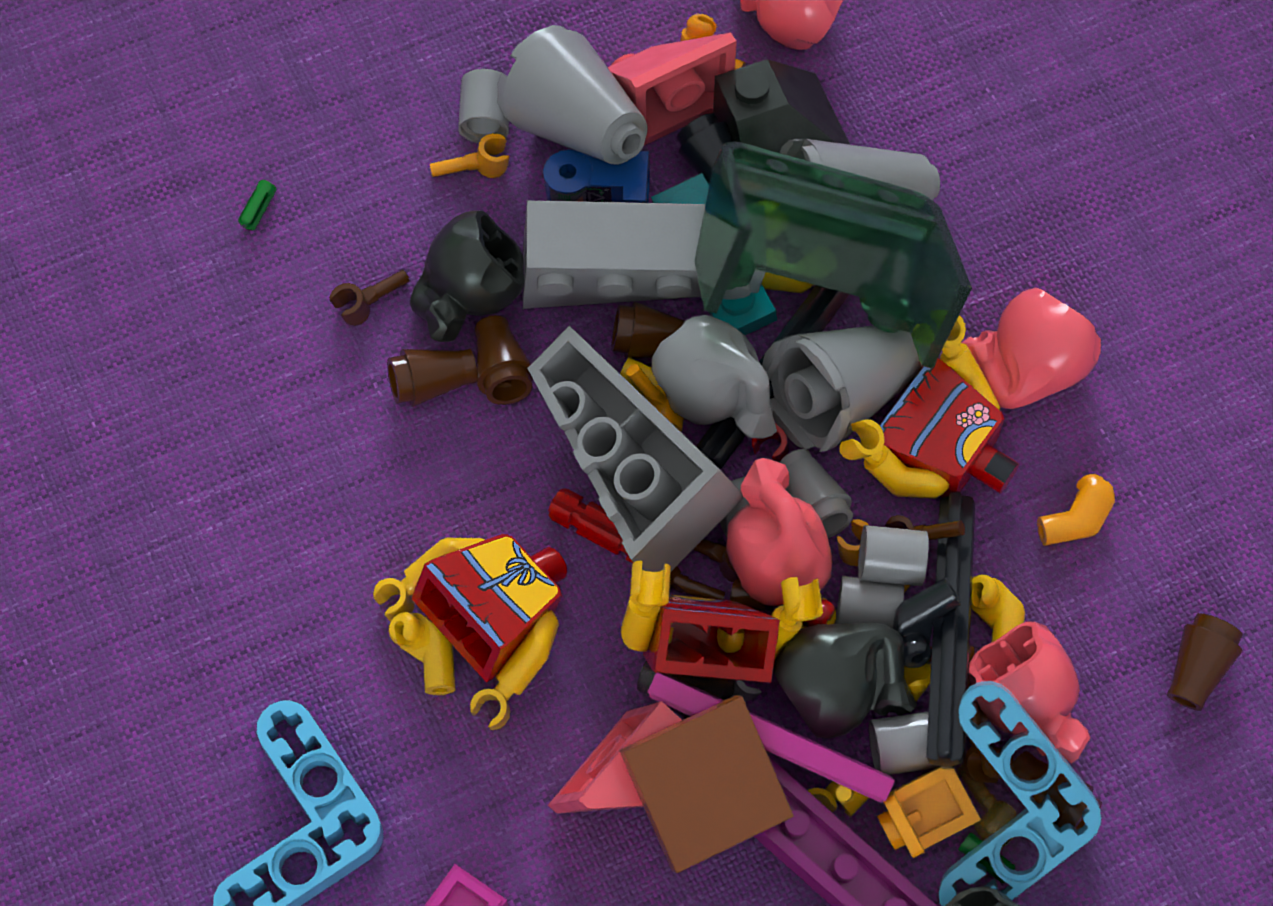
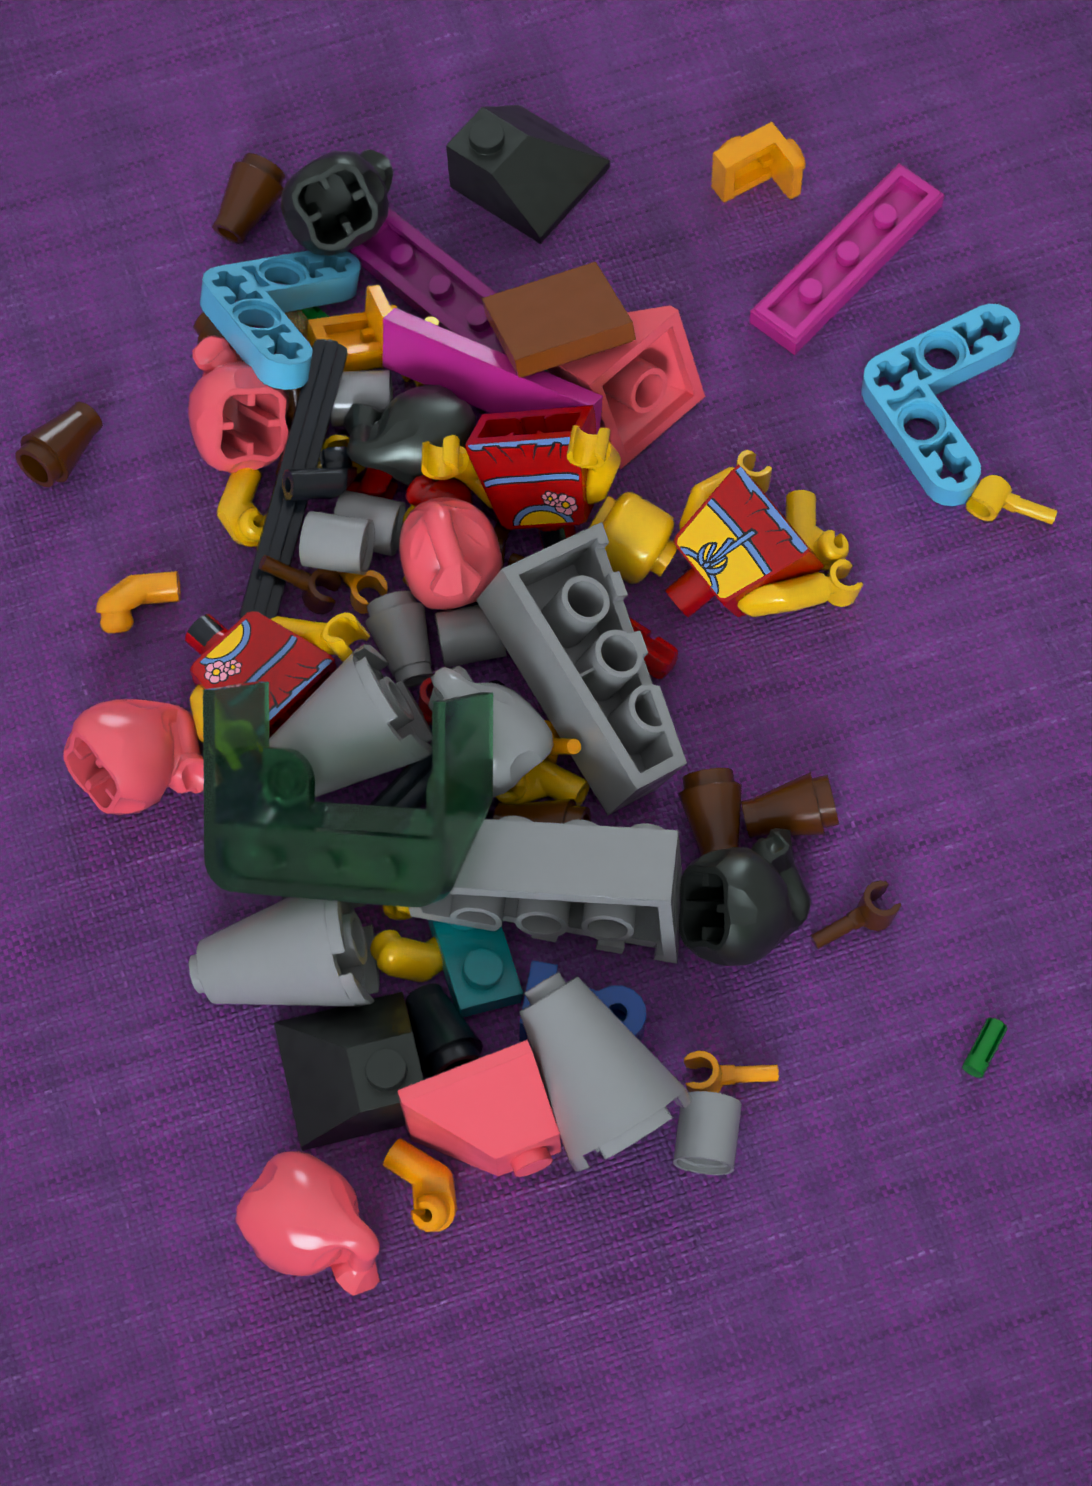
camera: 170 degrees left, 0 degrees up
(242, 712) = (996, 493): none -> yellow hand
(595, 612) = (636, 536): none -> yellow head

